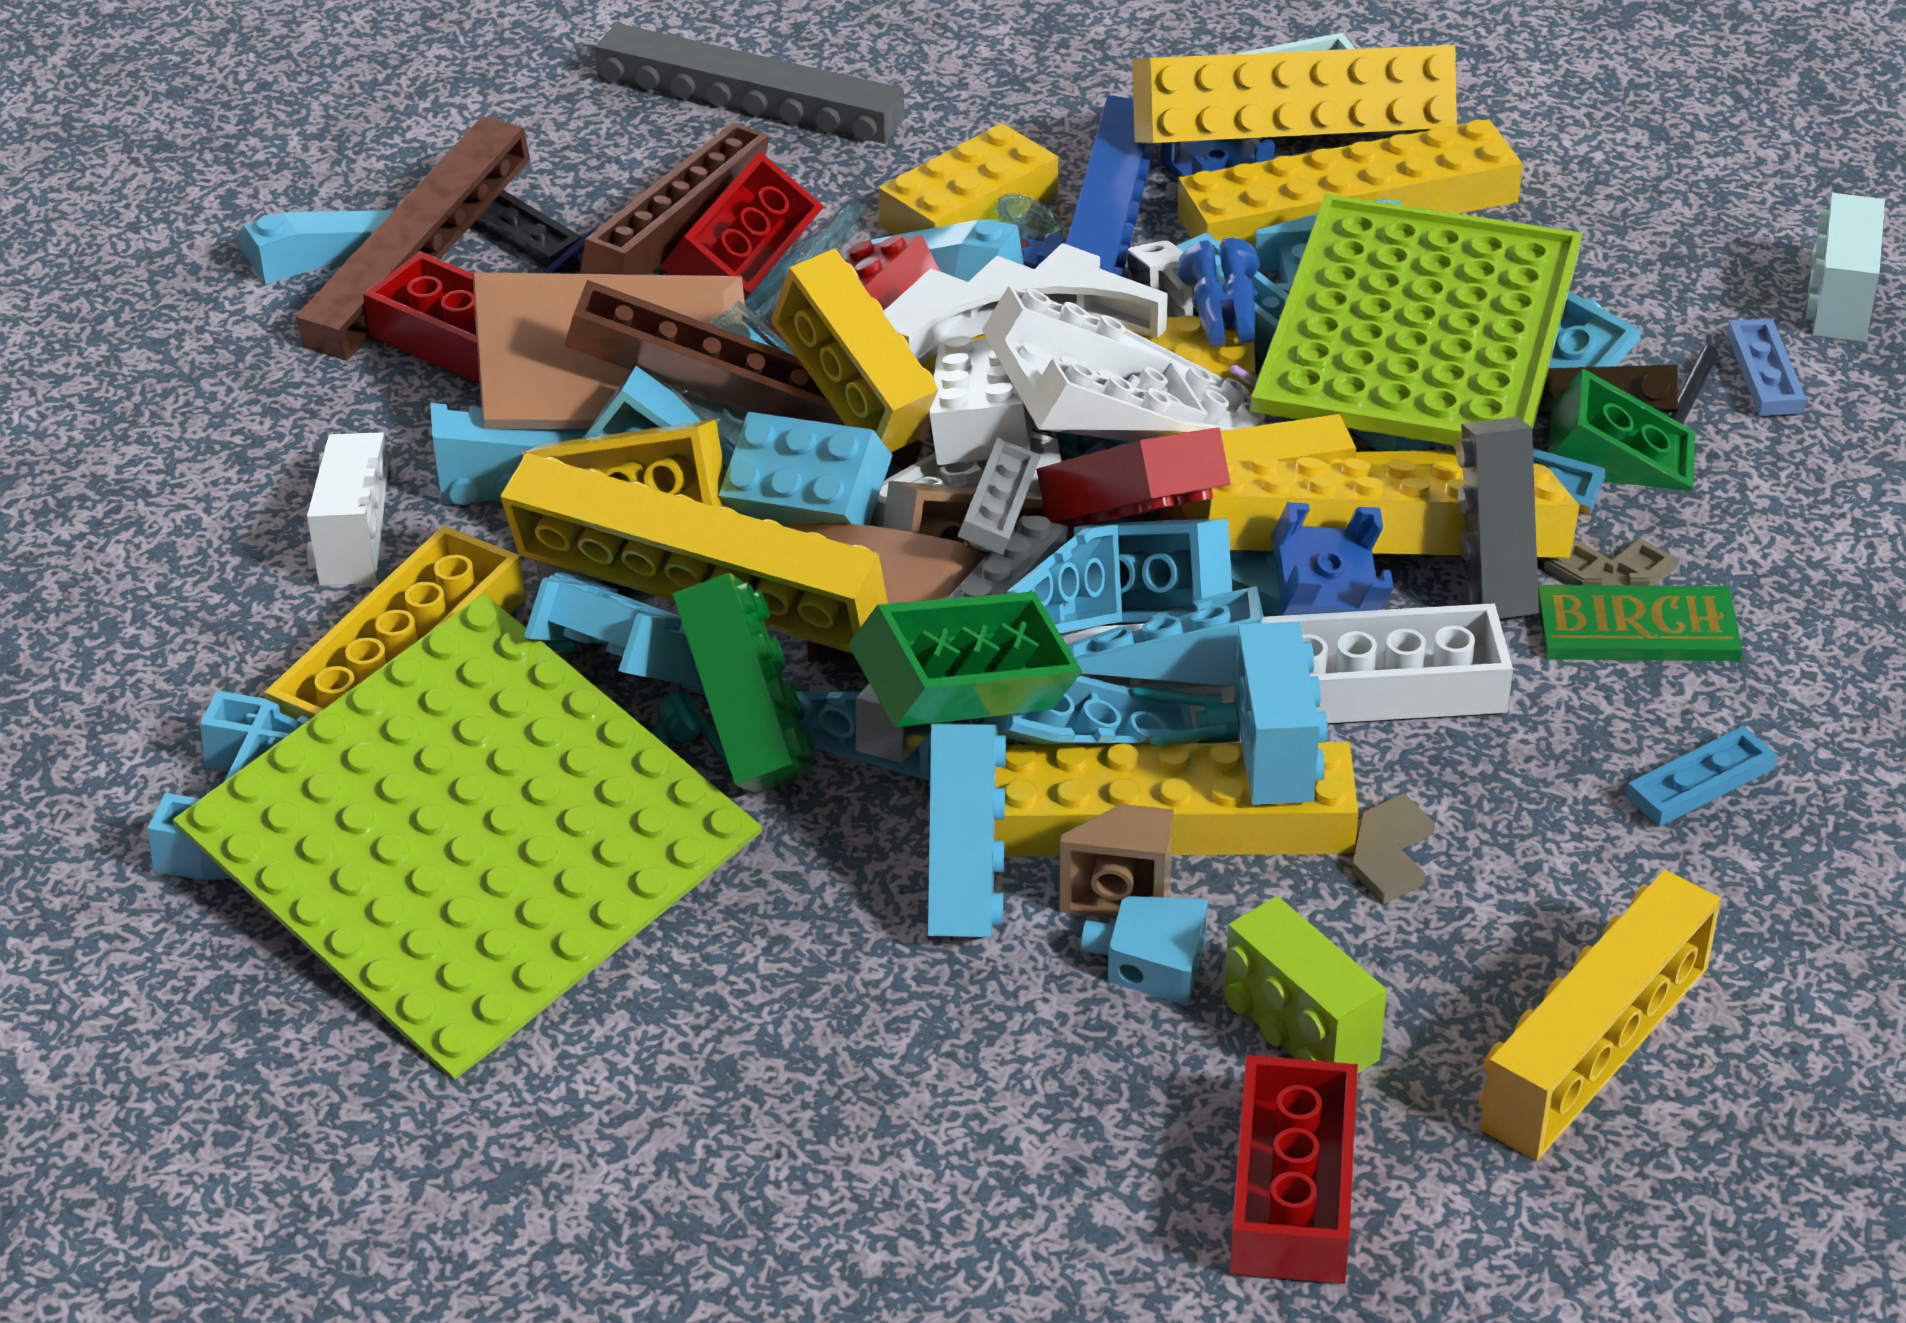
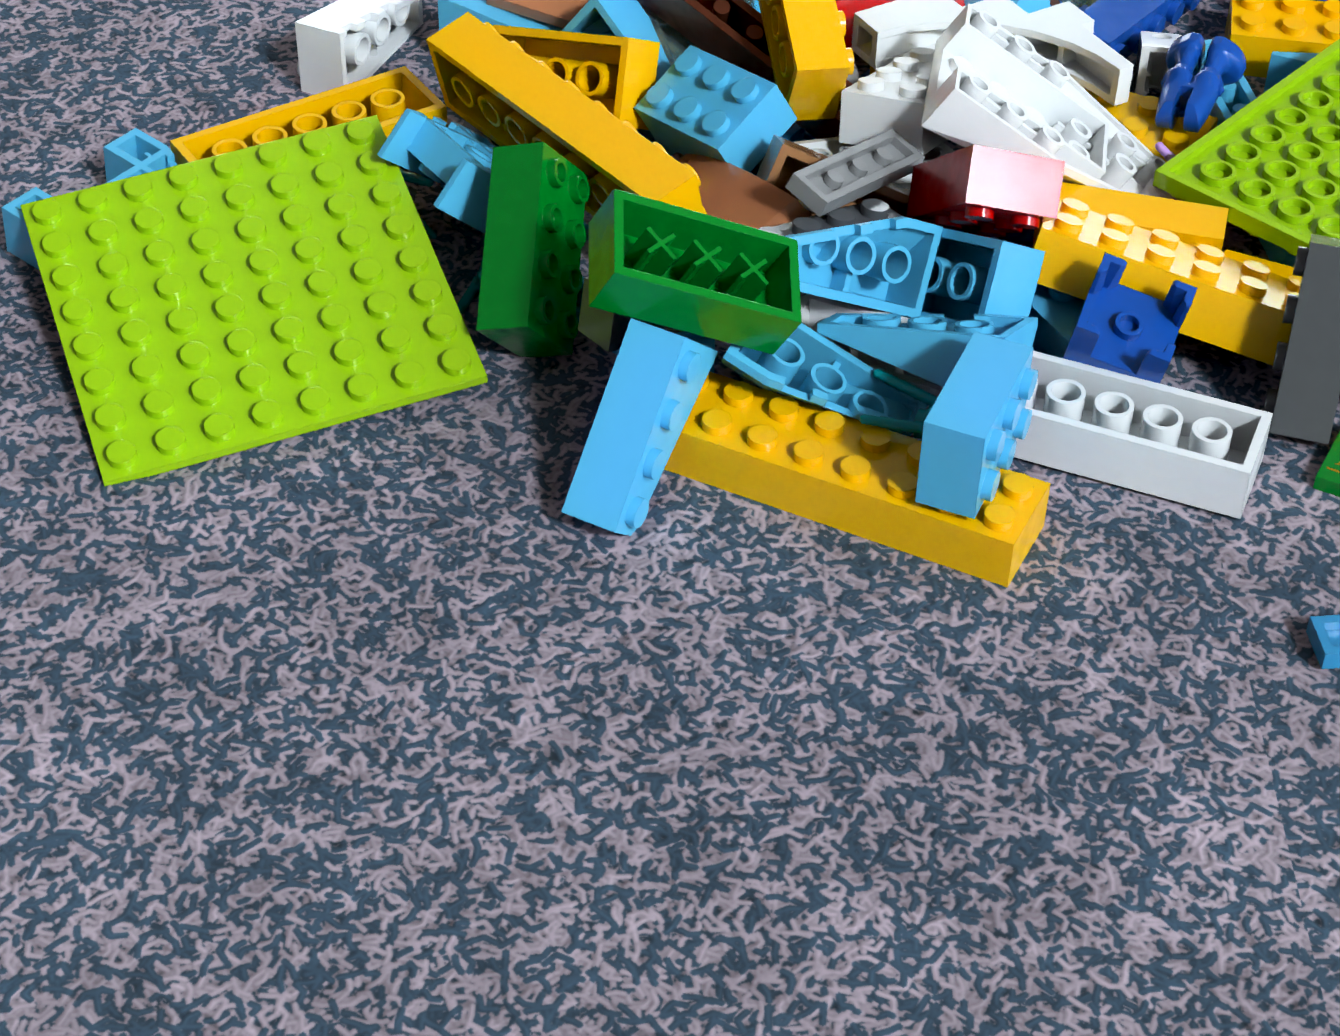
camera: 25 degrees right, 0 degrees up
(1115, 858) = (765, 511): medium nougat slope -> none
(1152, 945) = (757, 593): medium azure torso -> none
(1294, 1170) = (732, 829): red brick -> none
(1302, 988) = (850, 680): lime brick -> none
(1379, 853) = (1024, 598): dark tan tile -> none
(1597, 1014) = (1124, 804): yellow brick -> none

